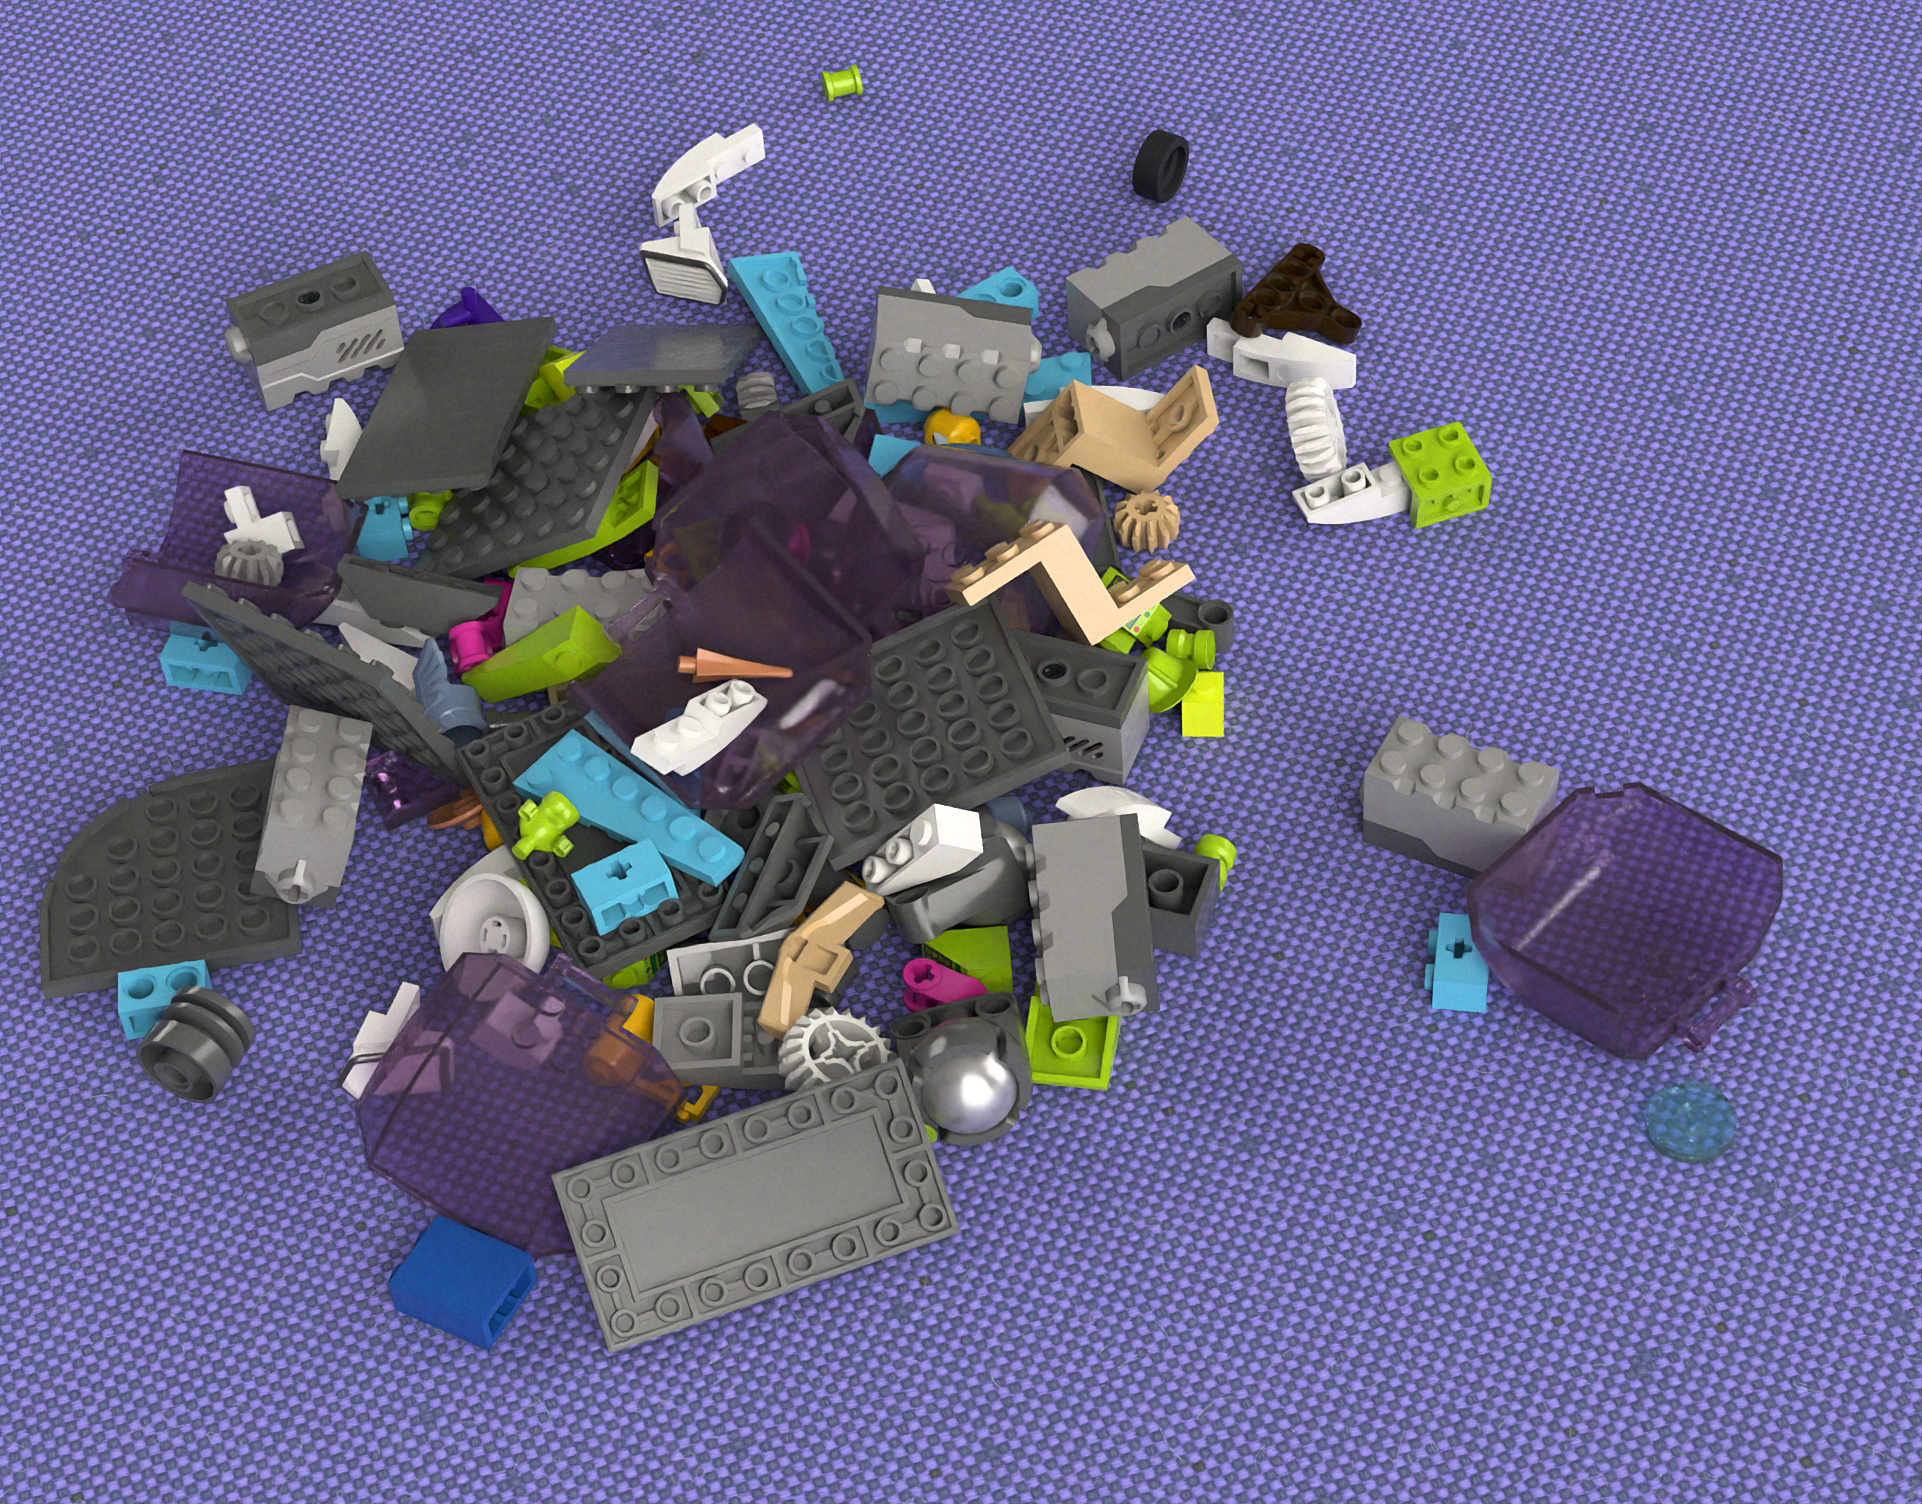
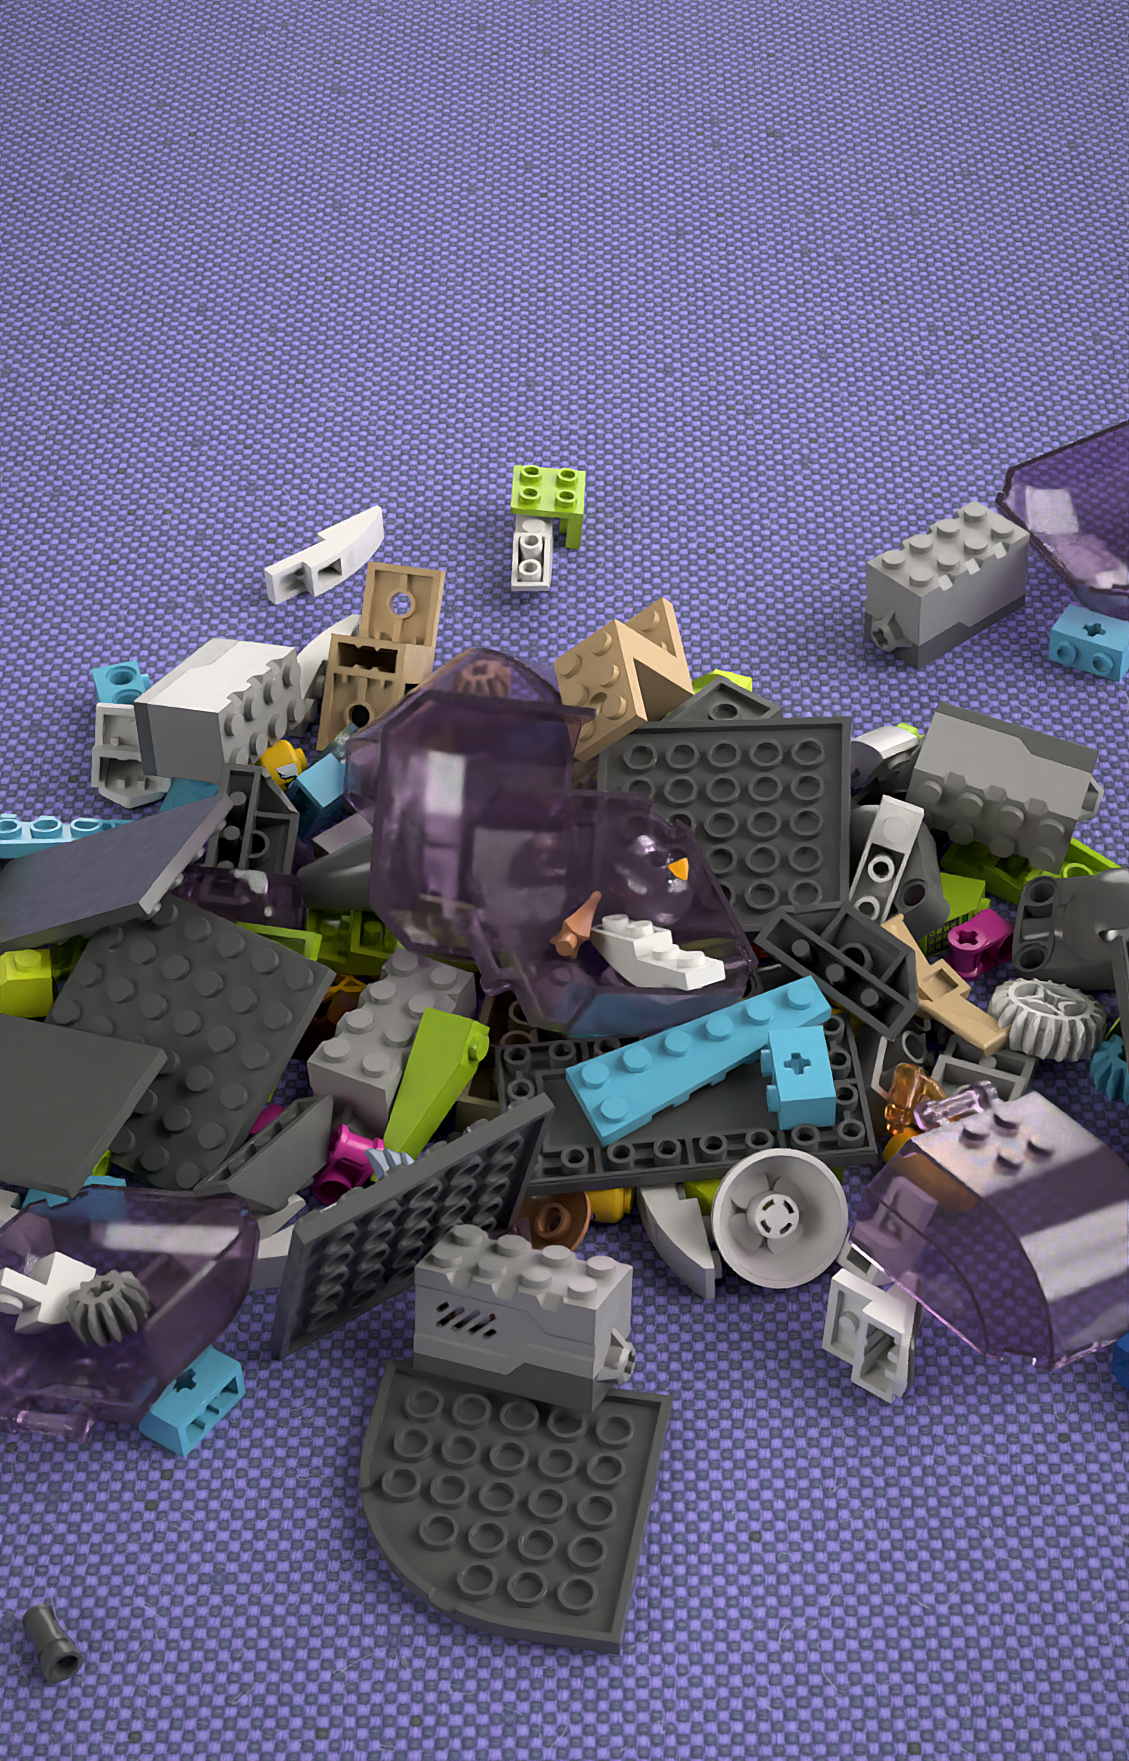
camera: 70 degrees left, 5 degrees down
(149, 990) = (694, 1531): medium azure brick -> none
(196, 1044) = (792, 1499): dark grey wheel -> none
(544, 824) = (681, 1121): lime piece -> none
(676, 983) = (905, 1093): none -> clear orange plant
(776, 705) = (647, 891): none -> clear purple piece
(1153, 298) = (205, 585): piece -> none
(1160, 166) = (34, 550): black tyre -> none
(1295, 299) = (275, 527): dark brown beam -> none
(1315, 428) = (459, 544): white gear -> none

